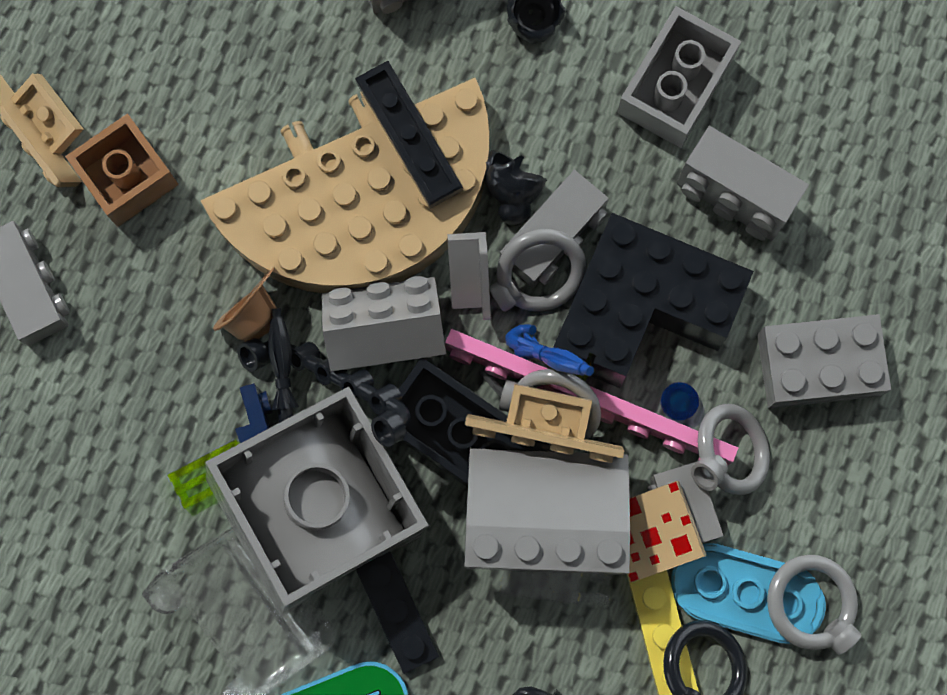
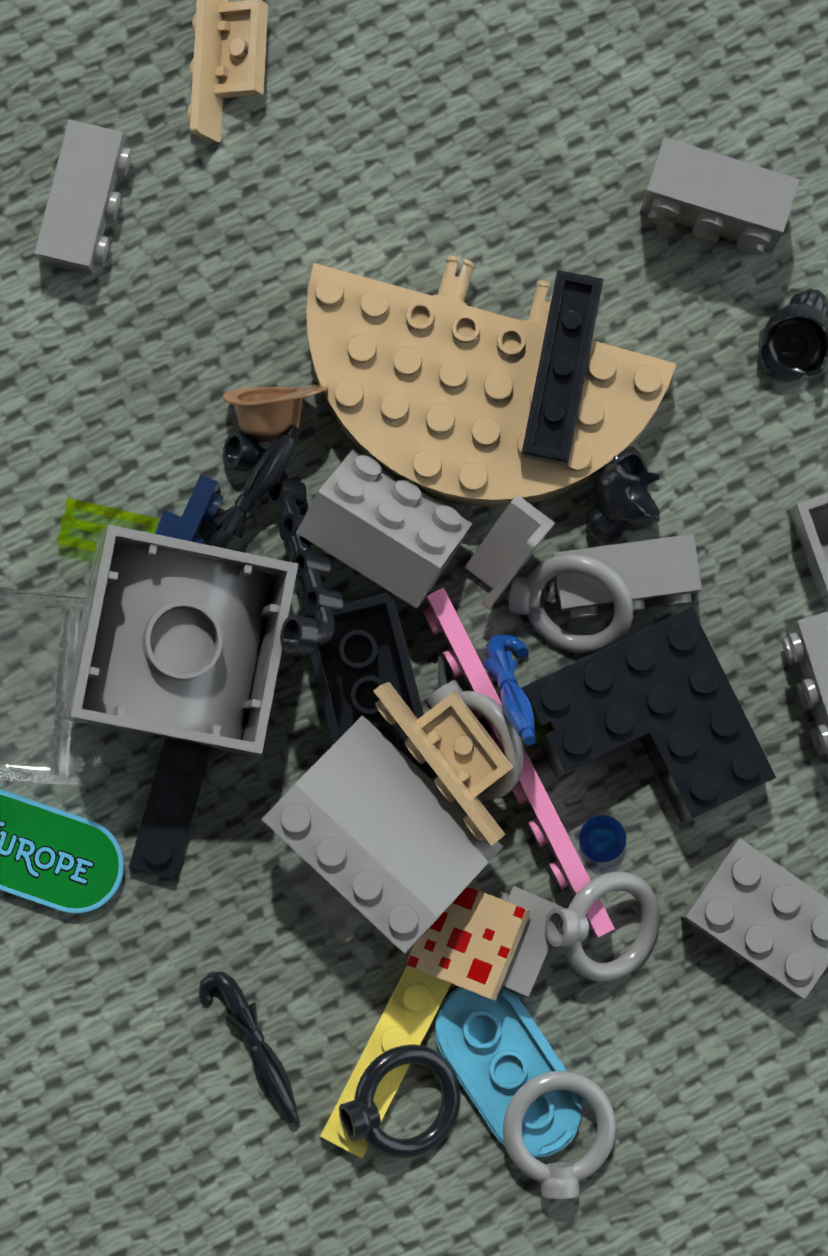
camera: 35 degrees right, 5 degrees up
(121, 170) = (265, 168): medium nougat brick -> none

